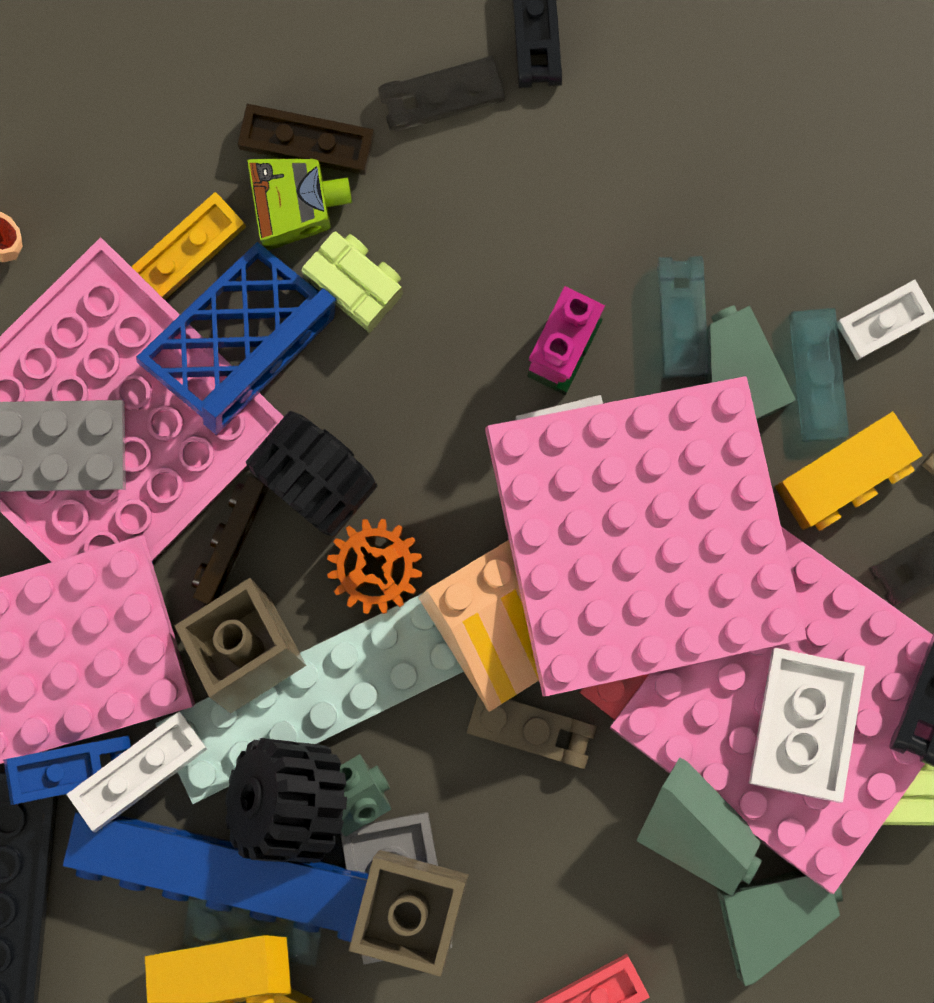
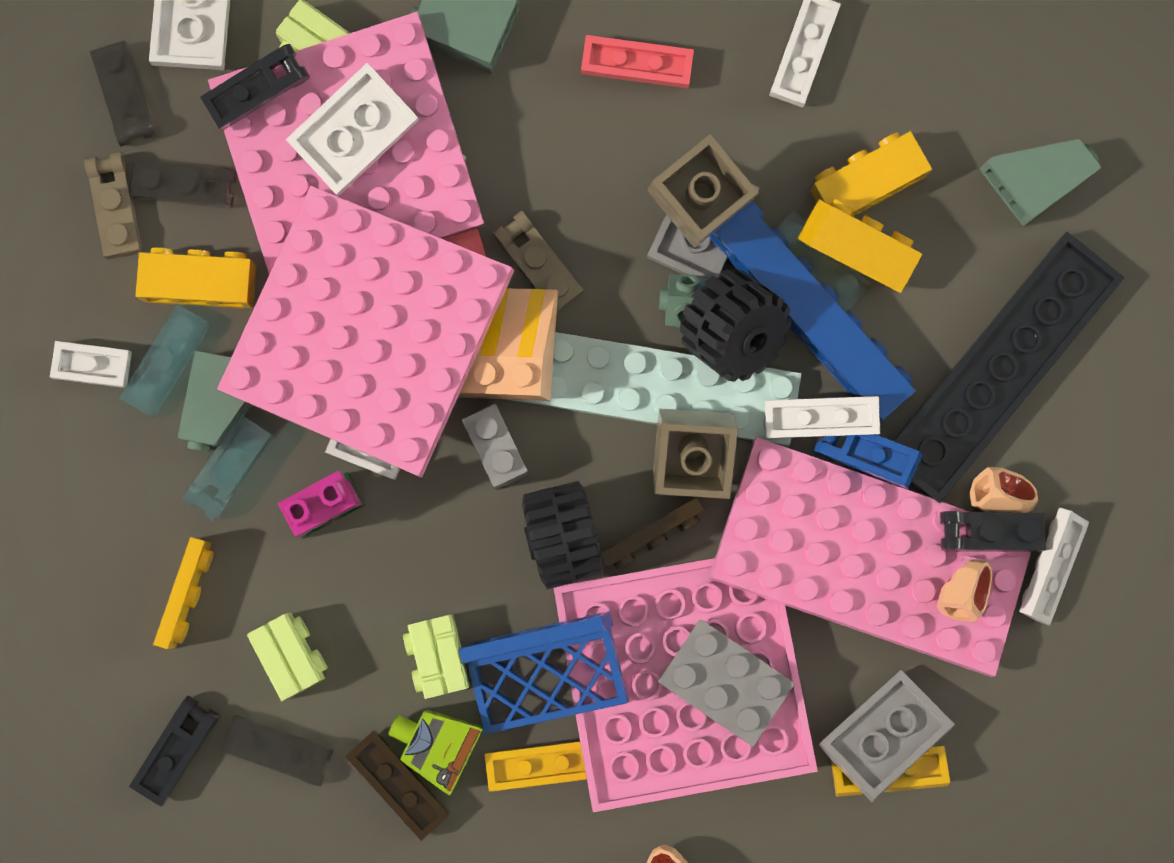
camera: 145 degrees left, 0 degrees up
(357, 577) = (583, 444): orange gear -> none
(440, 515) = (495, 447): none -> light grey brick
(494, 182) = (287, 655): none -> yellowish green brick
(634, 171) = (184, 594): none -> yellow plate
(701, 831) = (474, 113): sand green slope -> none

